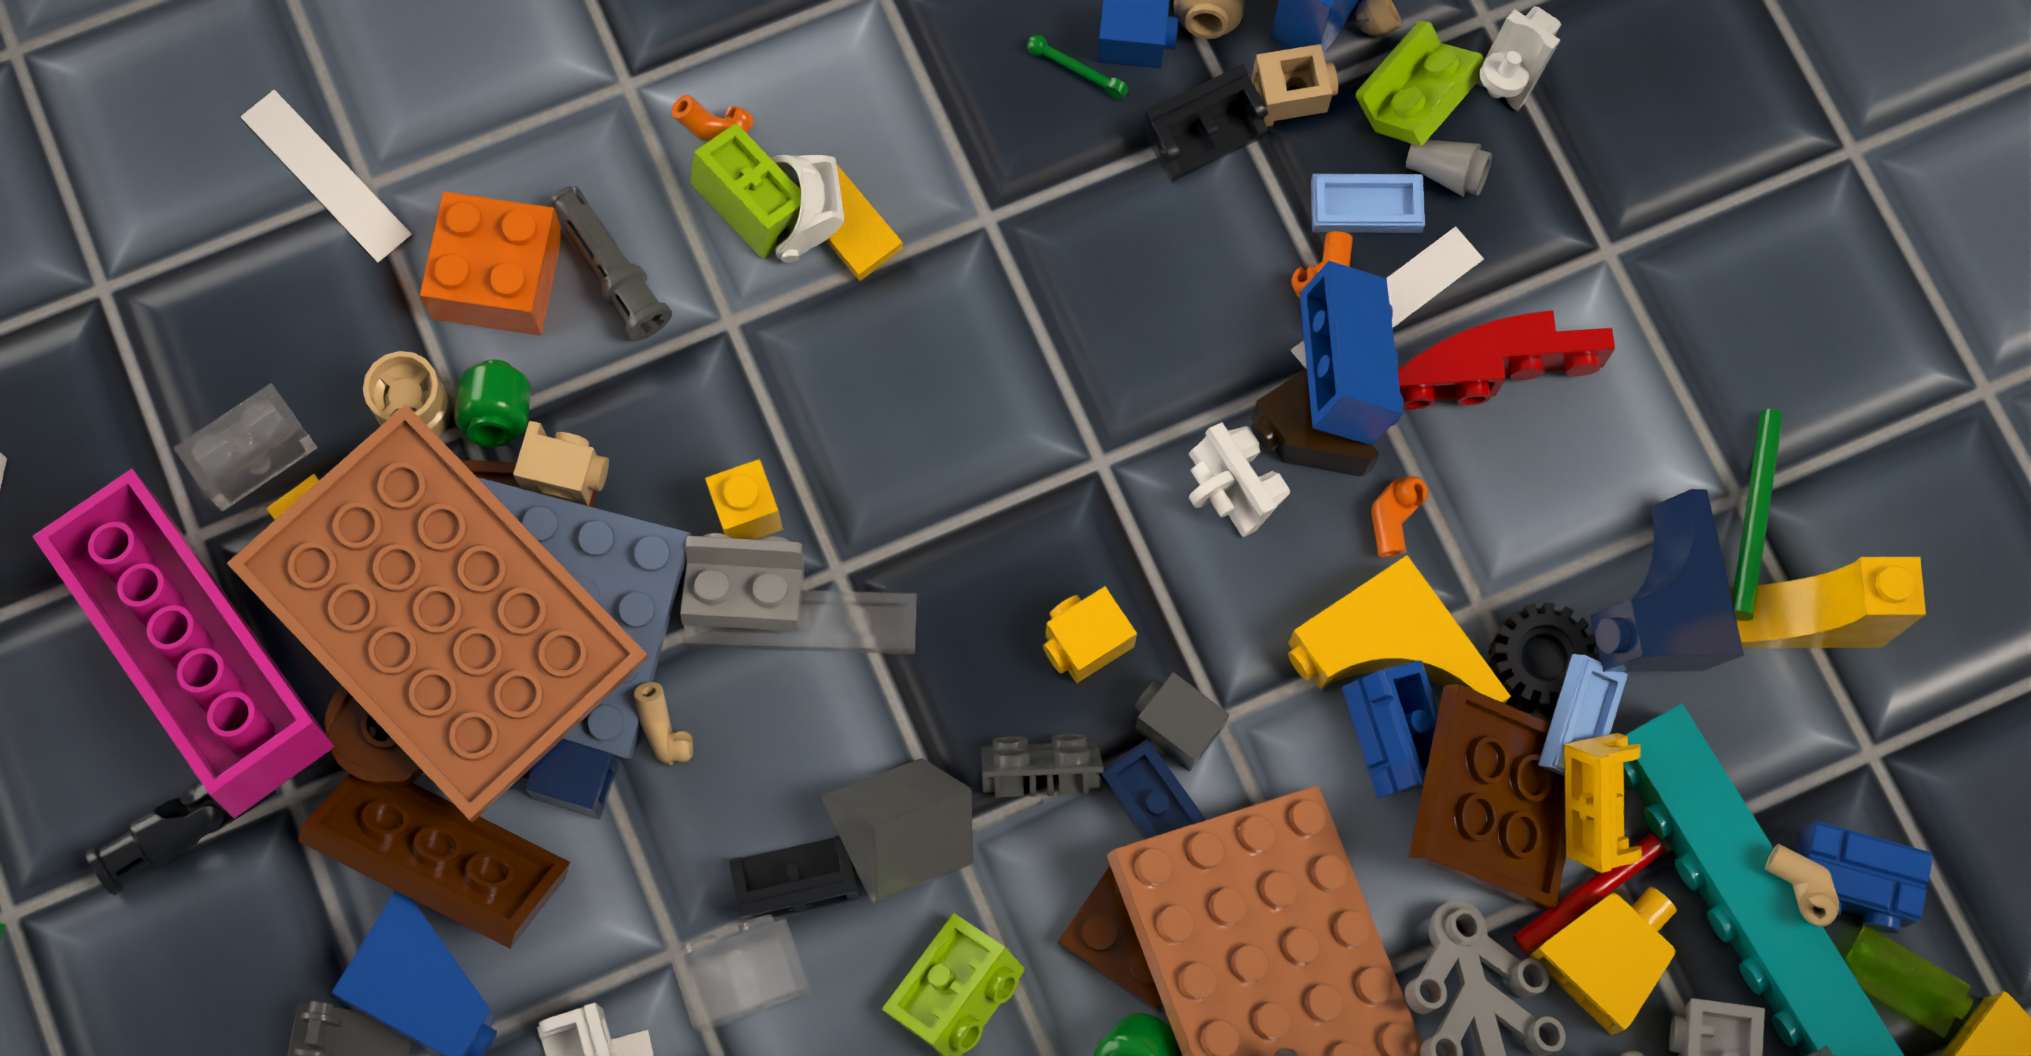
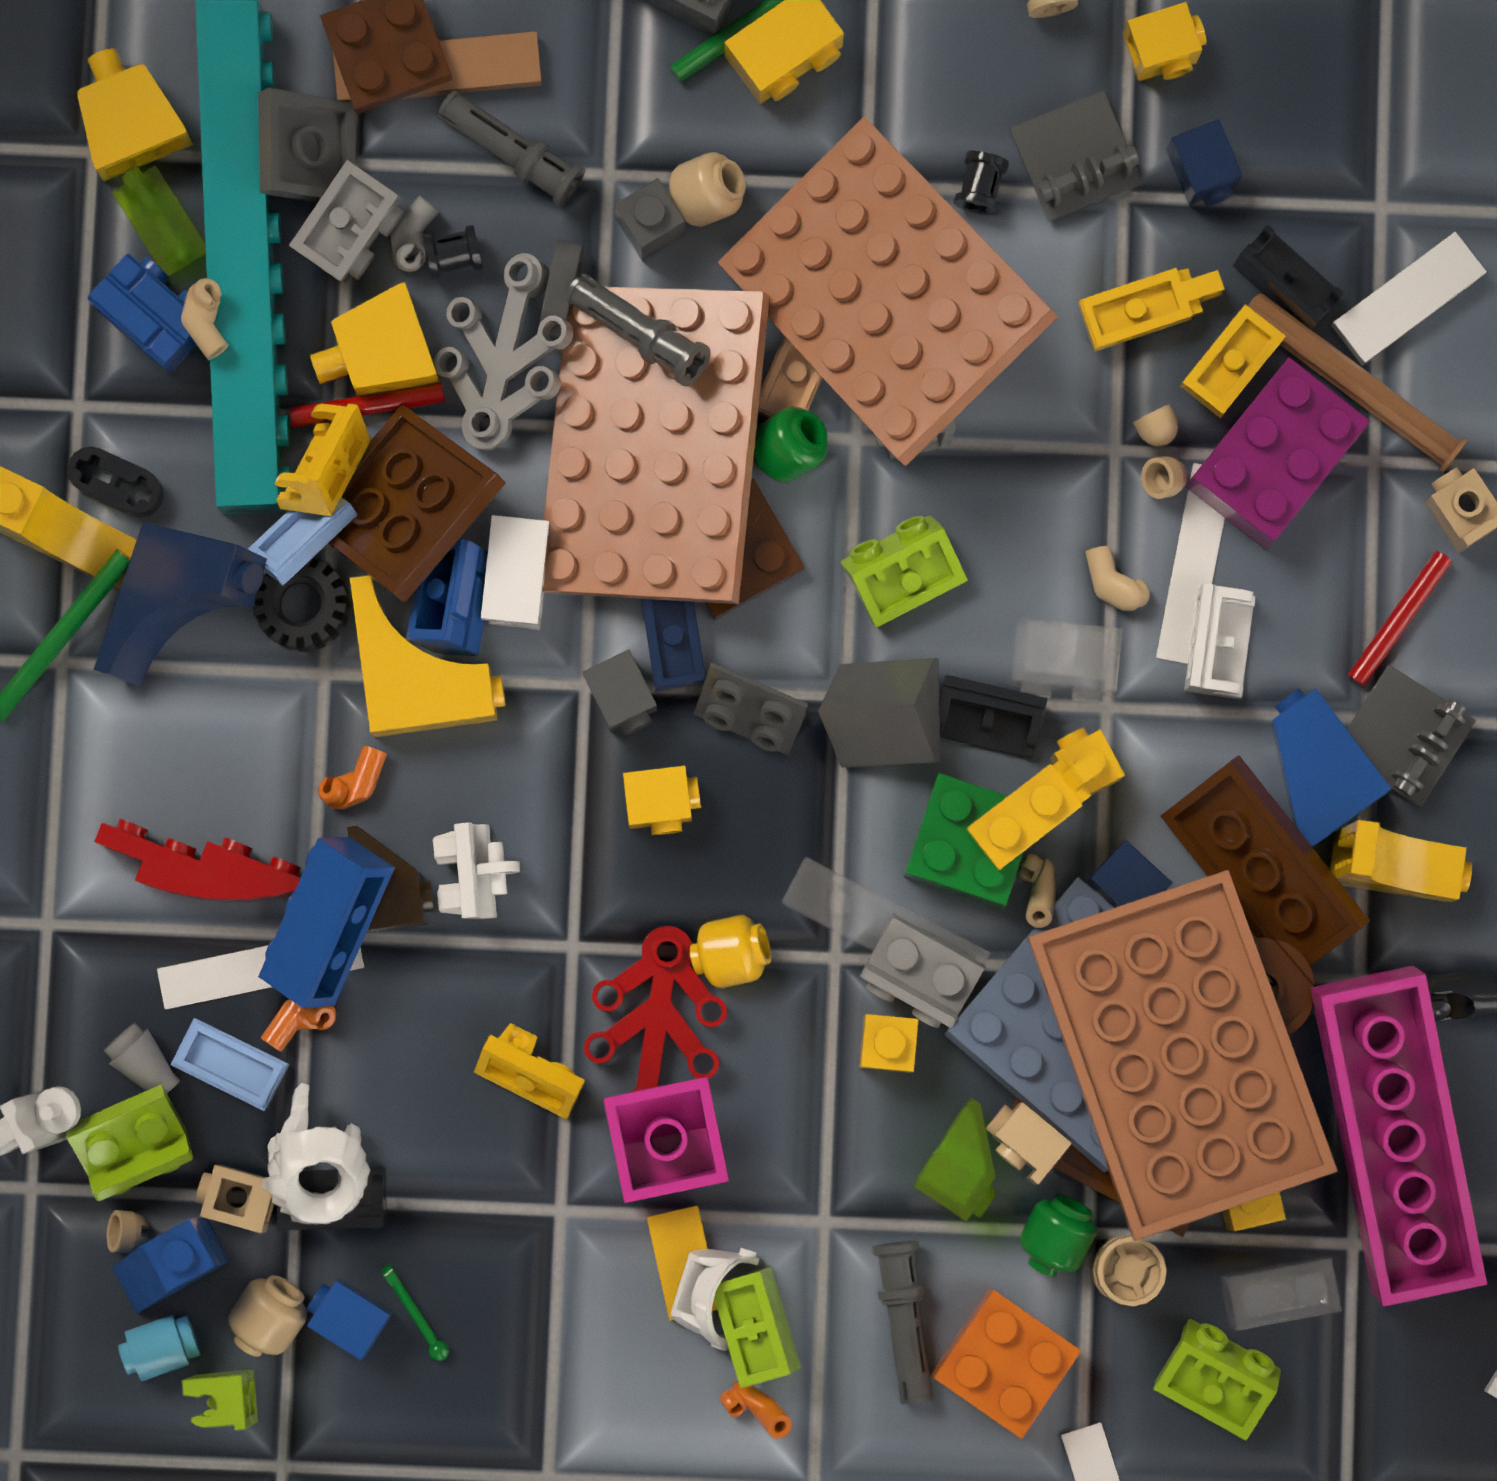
camera: 155 degrees left, 10 degrees up
(275, 346) = (1219, 1378): none -> lime bracket
(307, 918) = (1398, 864): none -> yellow arch
(620, 421) = (961, 1166): none -> clear neon green slope
(669, 872) = (1080, 744): none -> yellow brick
(699, 784) = (1034, 809): none -> yellow hinge
(753, 738) = (948, 855): none -> green brick
(914, 304) = (666, 1139): none -> dark pink slope
(942, 520) = (731, 951): none -> yellow head
(983, 429) = (658, 1012): none -> red plant
(1105, 322) = (511, 1065): none -> yellow hinge
(1254, 120) = (300, 1148): none -> white piece
(1349, 787) = (515, 572): none -> white hinge
(1791, 679) = (110, 492): none -> black beam

